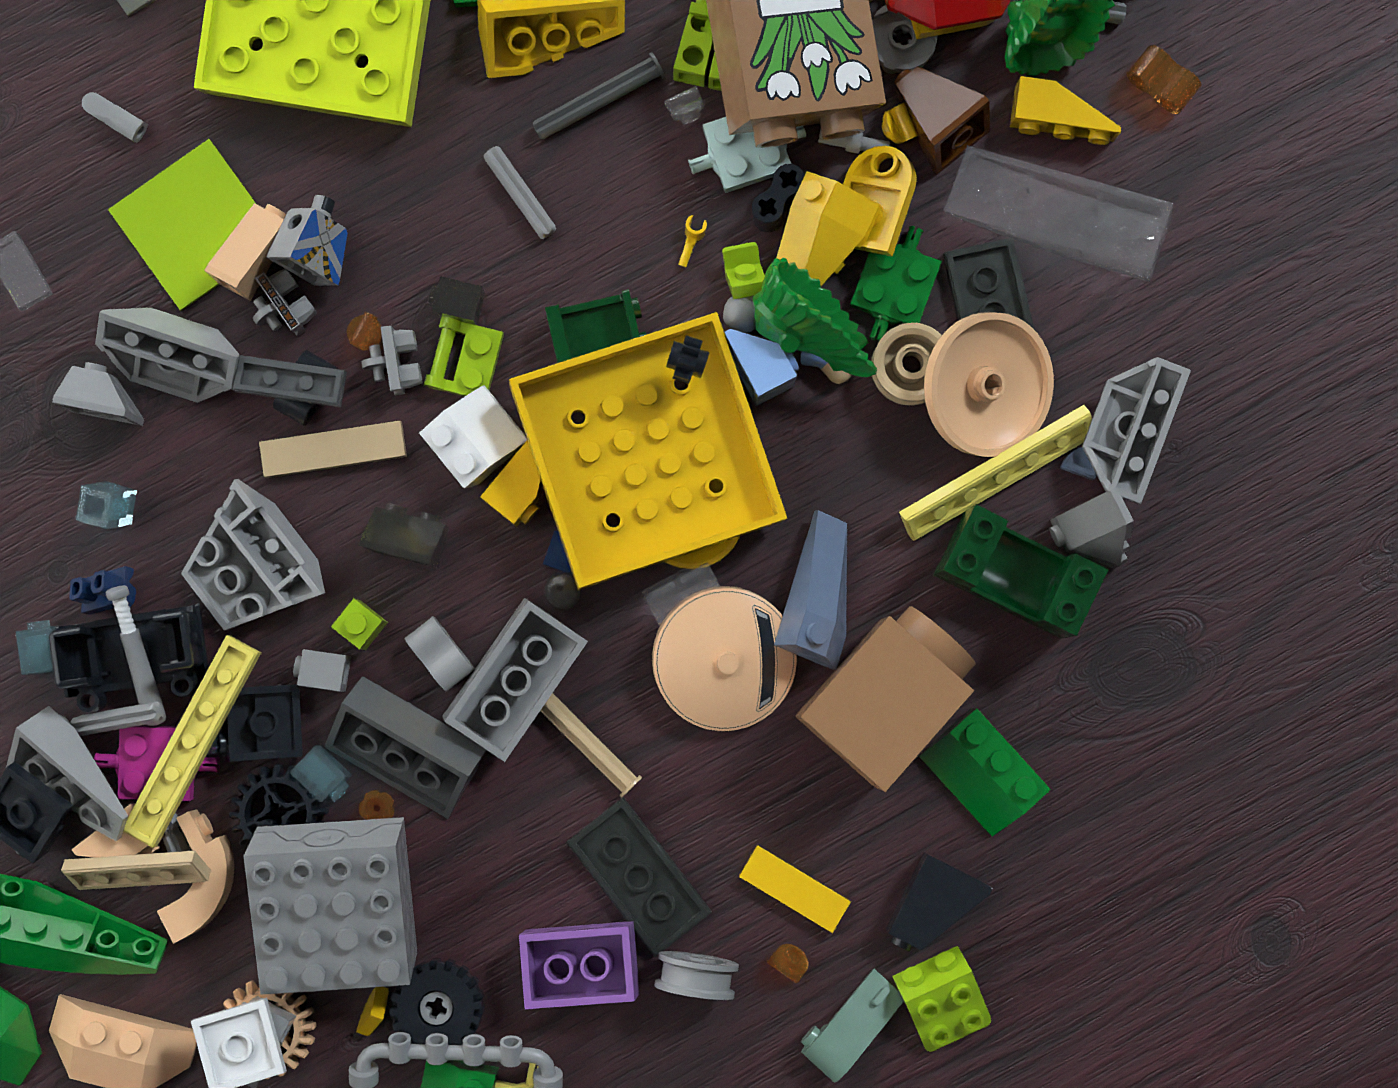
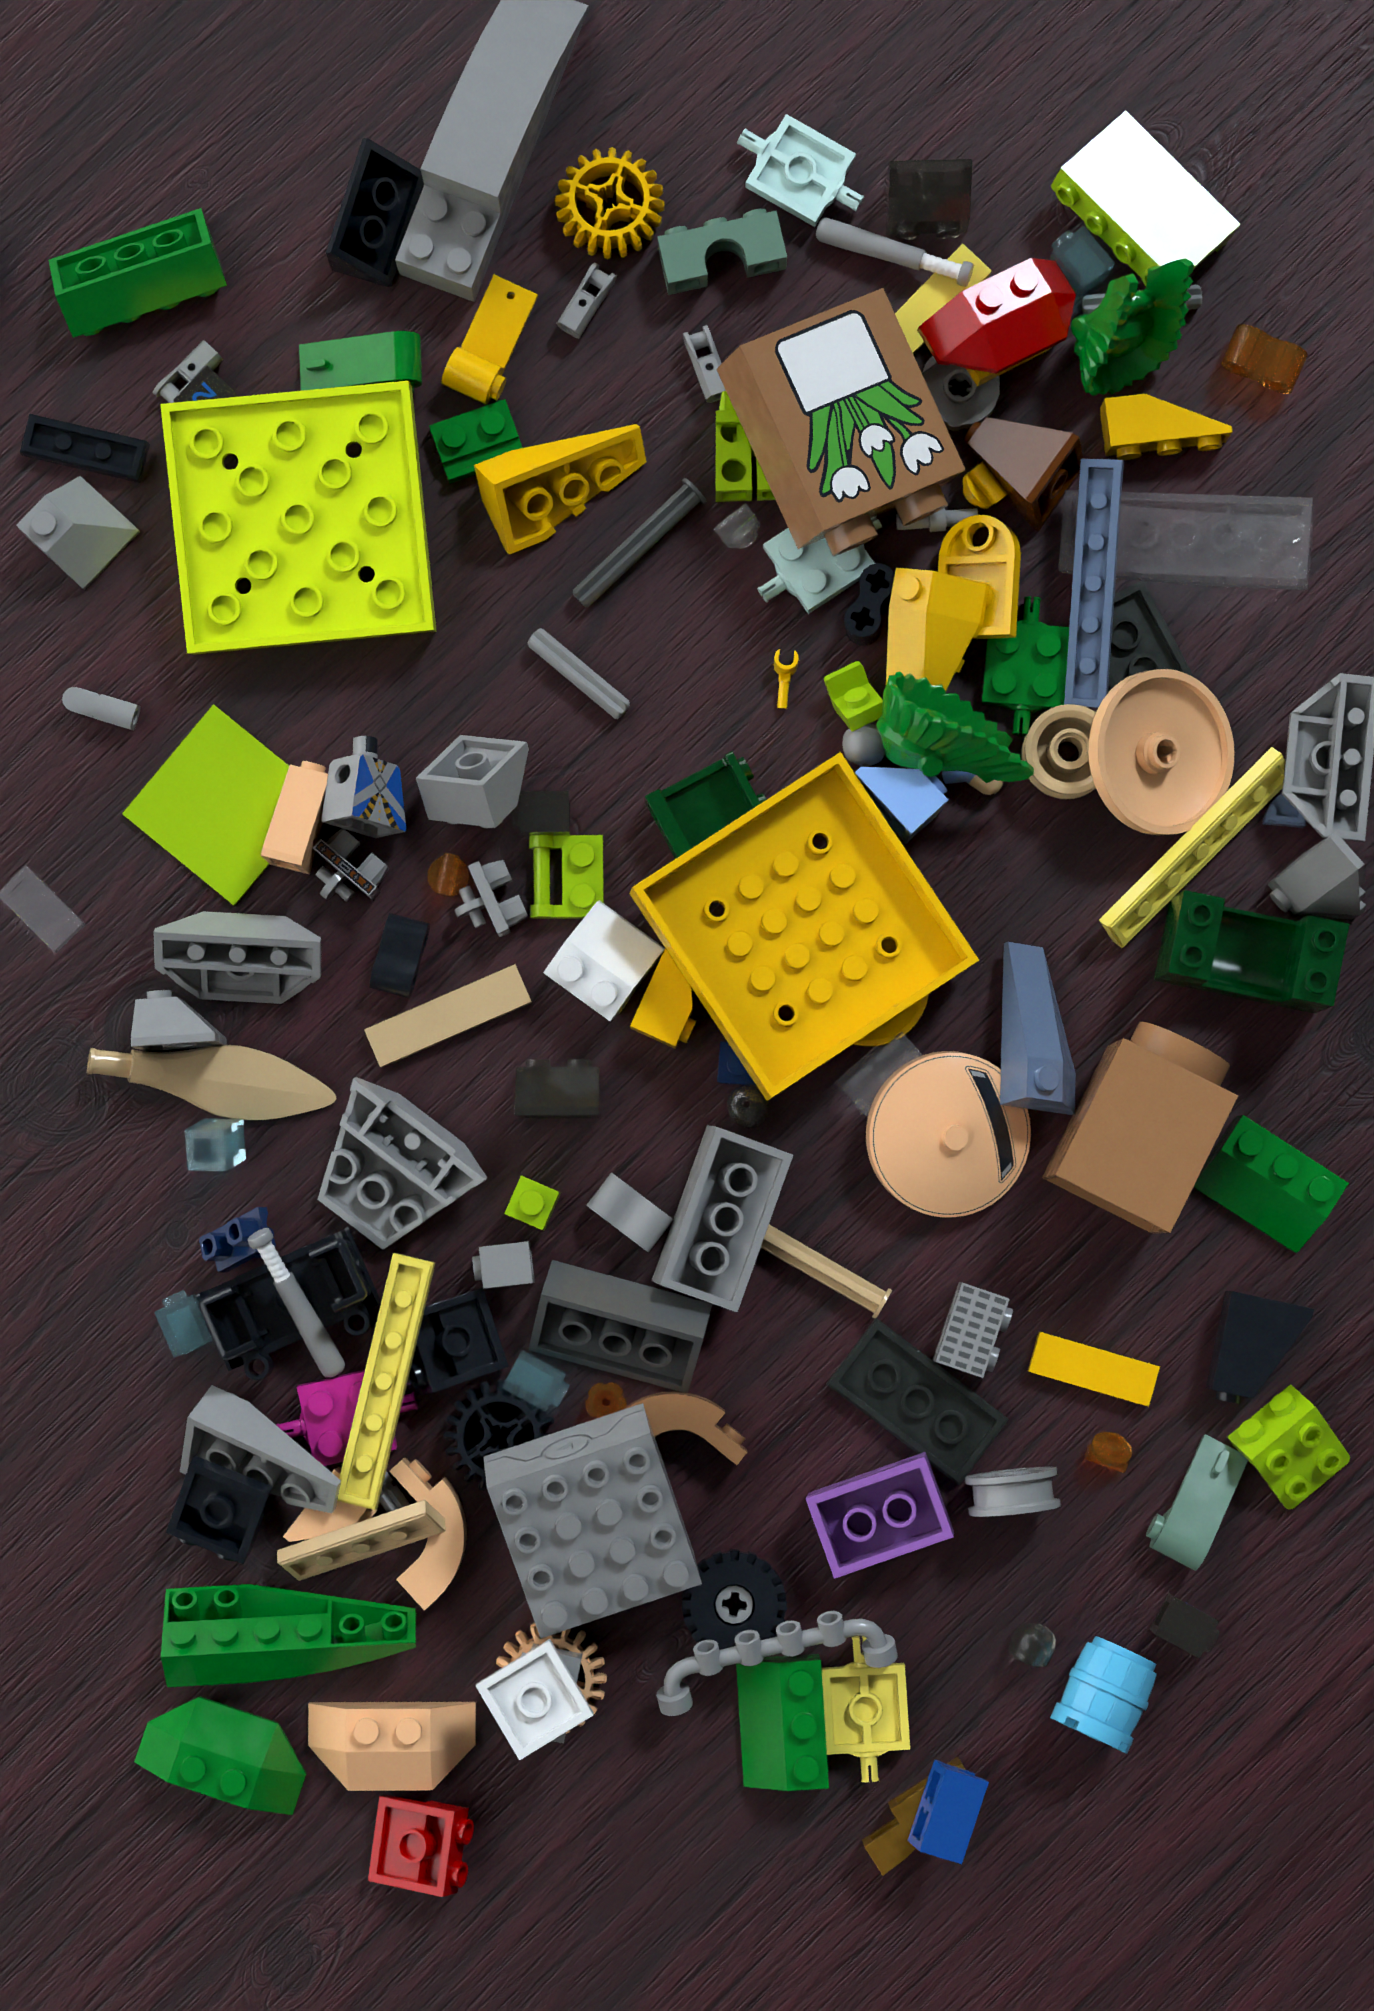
camera: 10 degrees left, 0 degrees up
(118, 718) = (295, 1378): light grey axle -> none
(128, 452) = (221, 1080): none -> tan animal
(289, 381) = (383, 953): dark grey tile -> none
(373, 1011) = (663, 1627): yellow tile -> none
(405, 258) = (474, 781): none -> light grey slope
(447, 838) = (694, 1414): none -> medium nougat arch
(687, 359) = (824, 813): black gear -> none
(700, 829) = (972, 1330): none -> light grey brick
(970, 226) = (1093, 582): none -> sand blue plate

